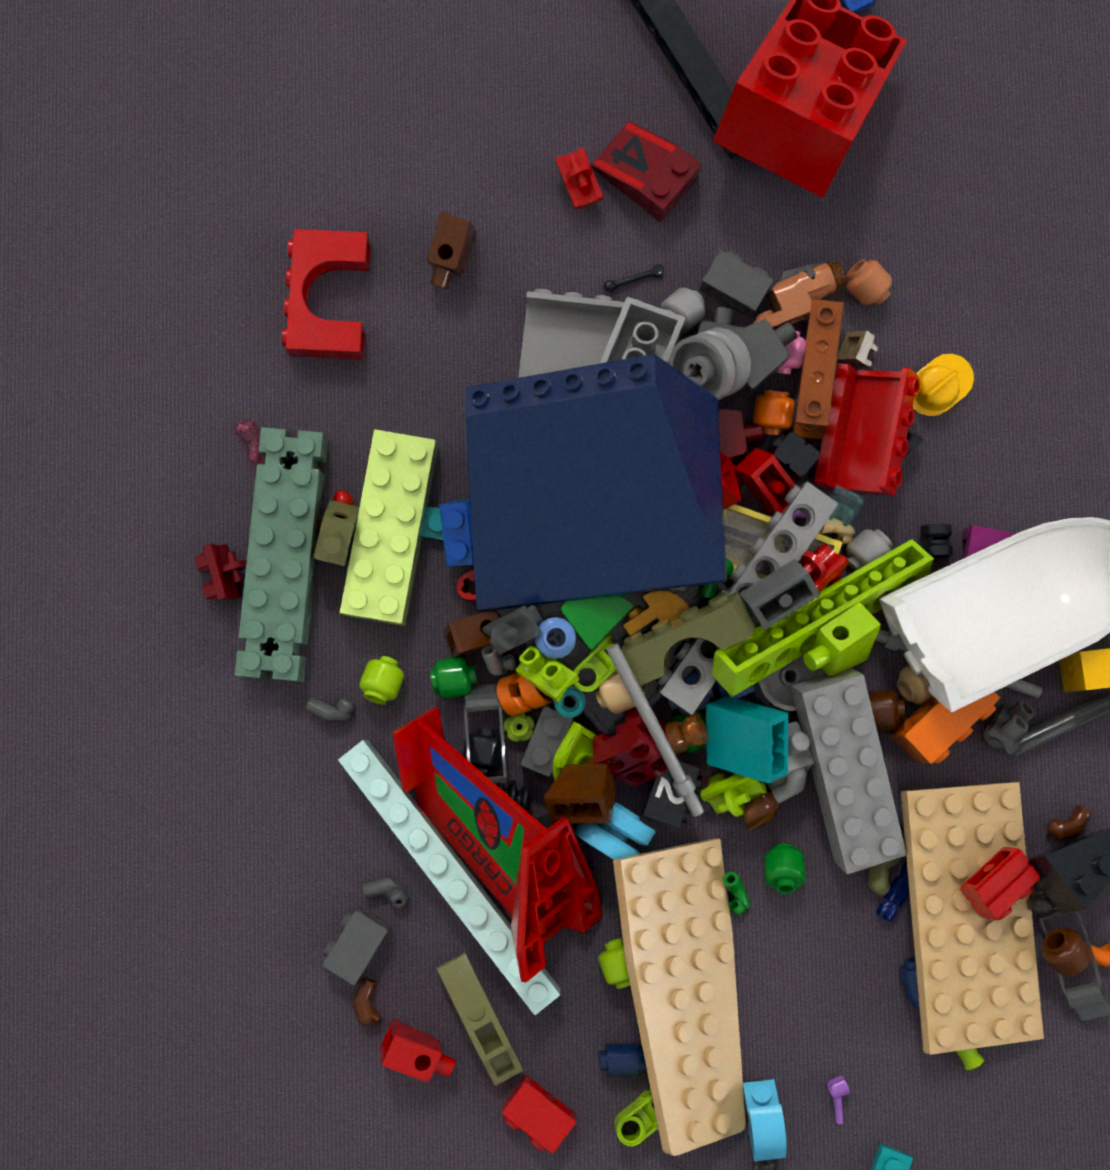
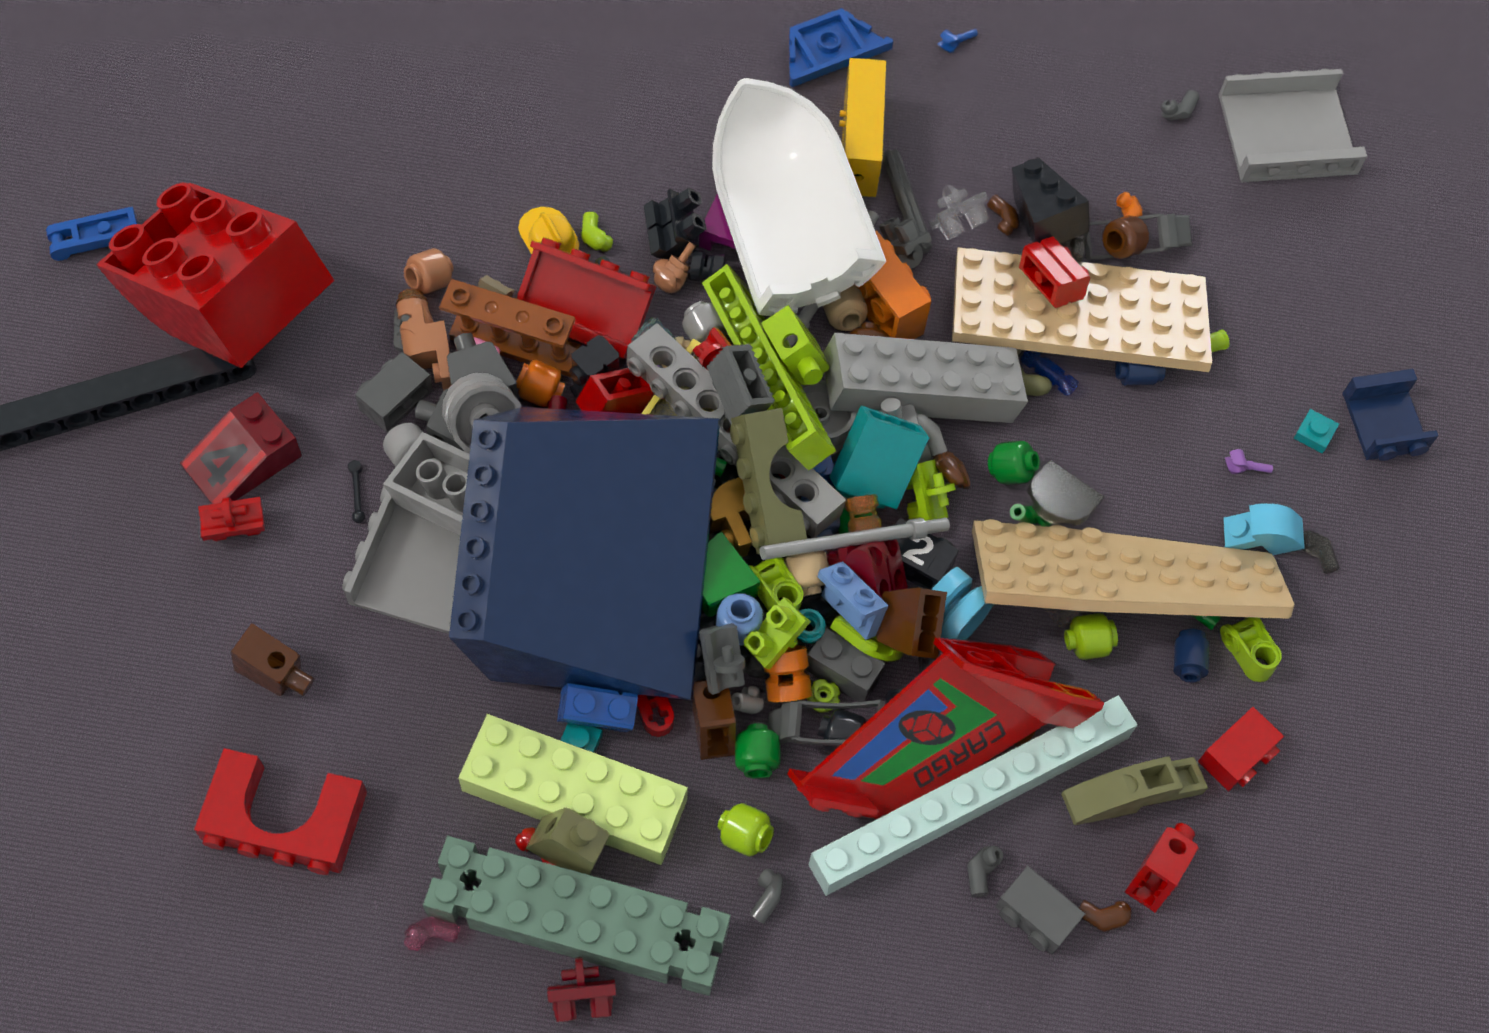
camera: 85 degrees left, 20 degrees down
(596, 736) = (853, 599): none -> medium blue bracket
(761, 919) = (1062, 496): none -> clear smoke tile
(923, 509) = (672, 273): none -> nougat piece
(949, 424) = (593, 235): none -> lime arm
(972, 499) = (673, 223): none -> black hips
(1068, 790) = (948, 219): none -> clear hips

